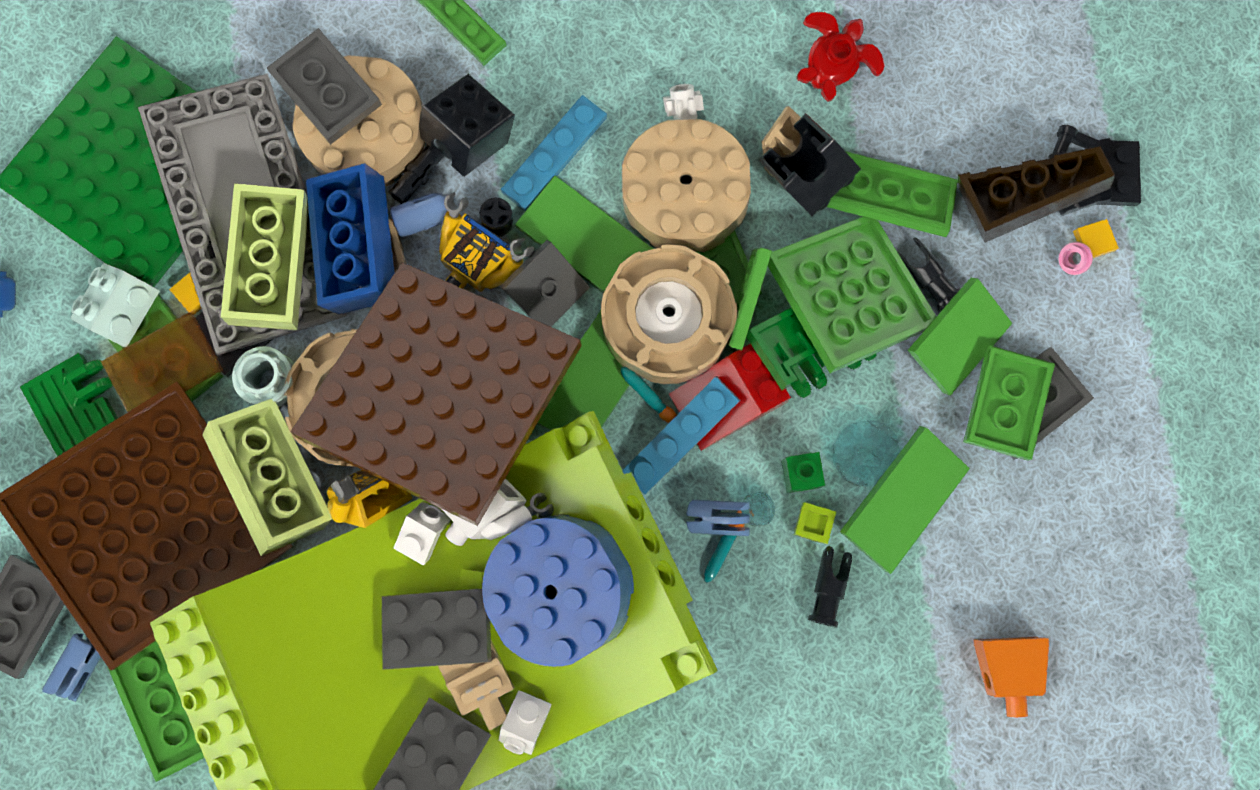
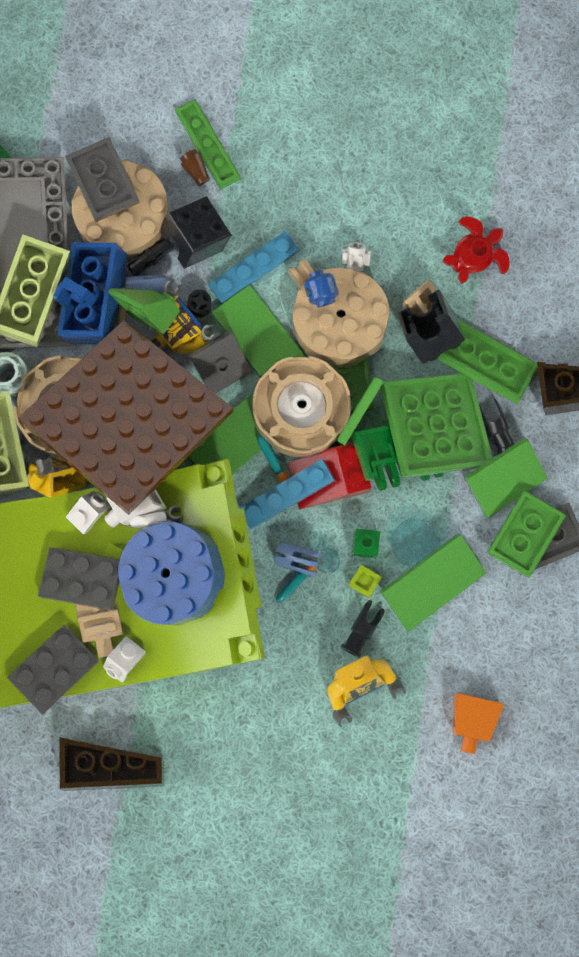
camera: 10 degrees right, 0 degrees up
(318, 241) = (71, 290): none -> blue bracket
(428, 237) = (147, 307): none -> bright green slope
(441, 42) = (194, 166): none -> reddish brown cone
(618, 142) = (301, 272): none -> tan wheel
(652, 152) = (321, 288): none -> blue head
(845, 660) = (358, 680): none -> yellow torso

